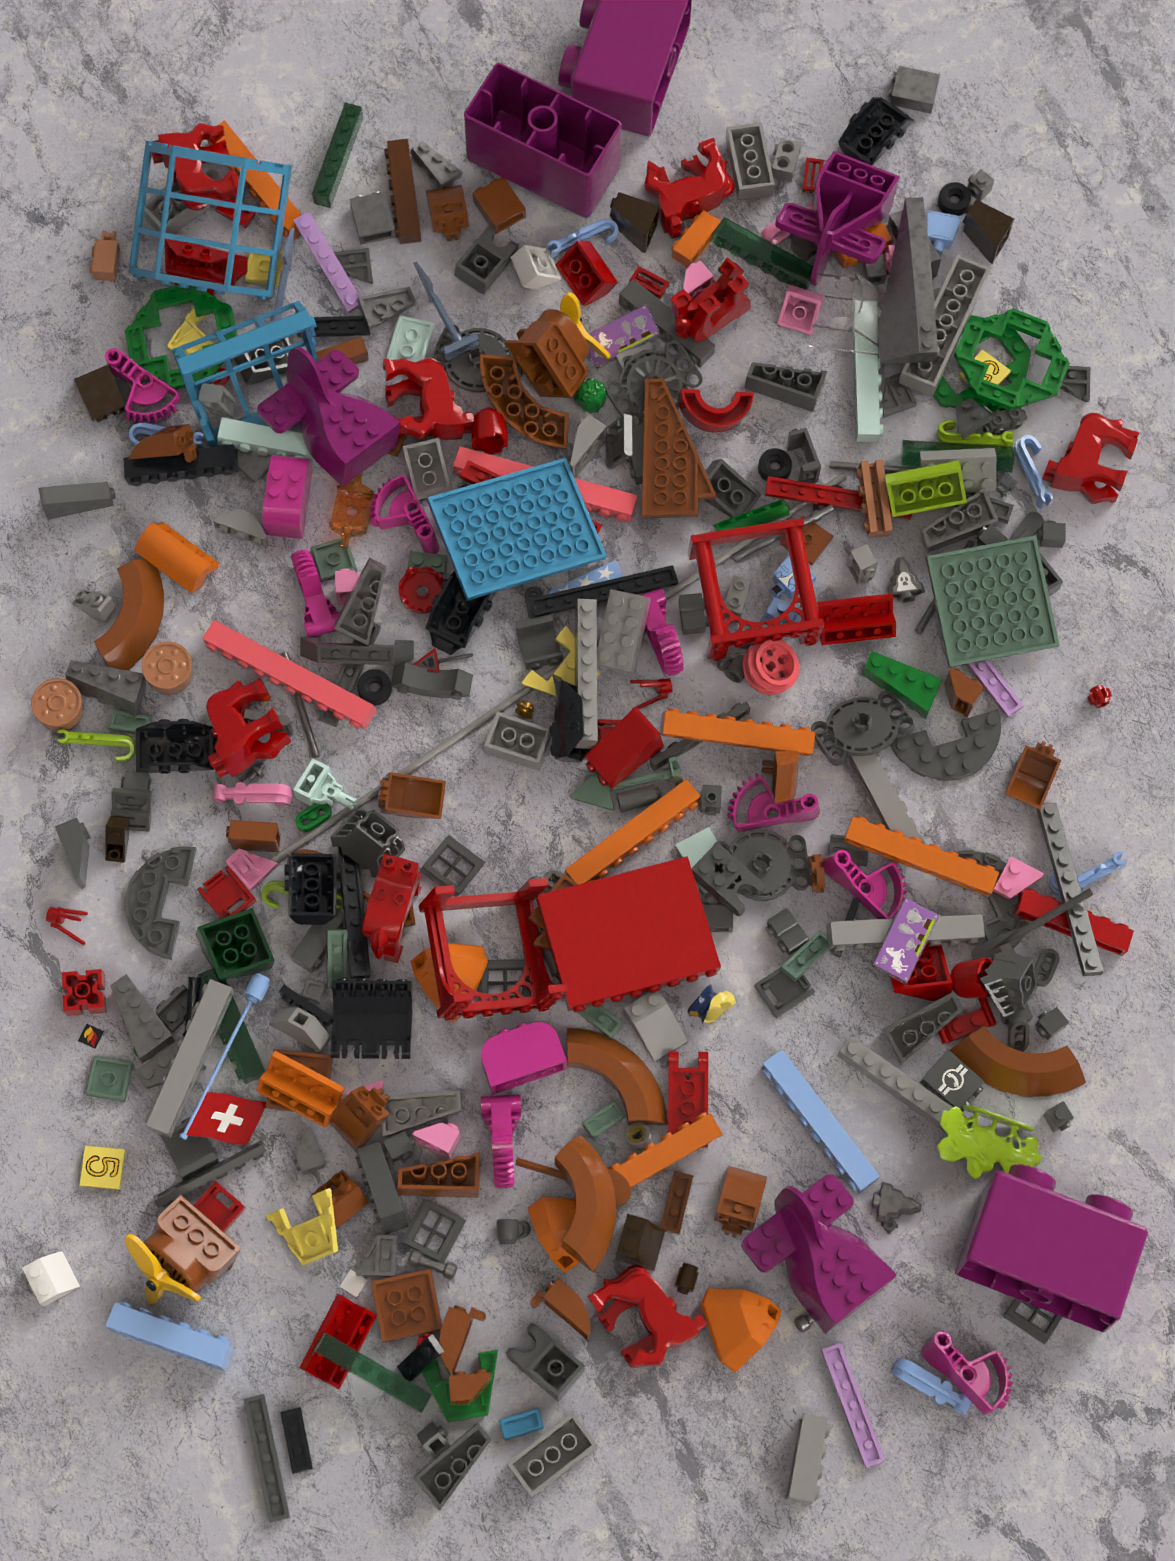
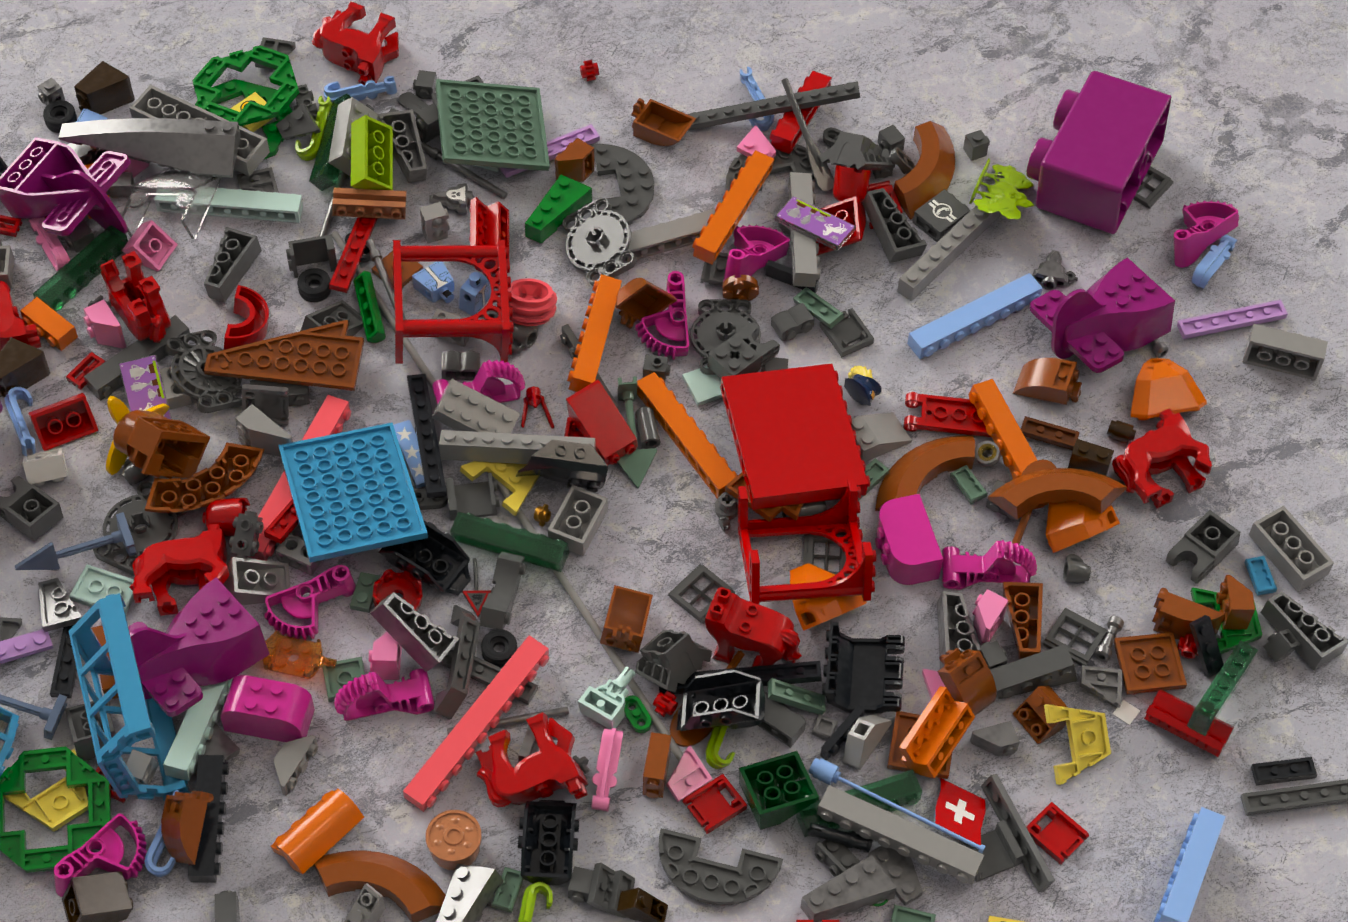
camera: 85 degrees left, 15 degrees down
(182, 1252) = (1110, 846): brick -> none
(322, 840) = (665, 703): none -> red gear
(463, 445) = (248, 528): none -> dark grey brick
(488, 682) = (502, 537): none -> clear green brick
(566, 1305) = (1153, 521): dark orange piece -> none
(591, 395) = (209, 422): green hair -> none

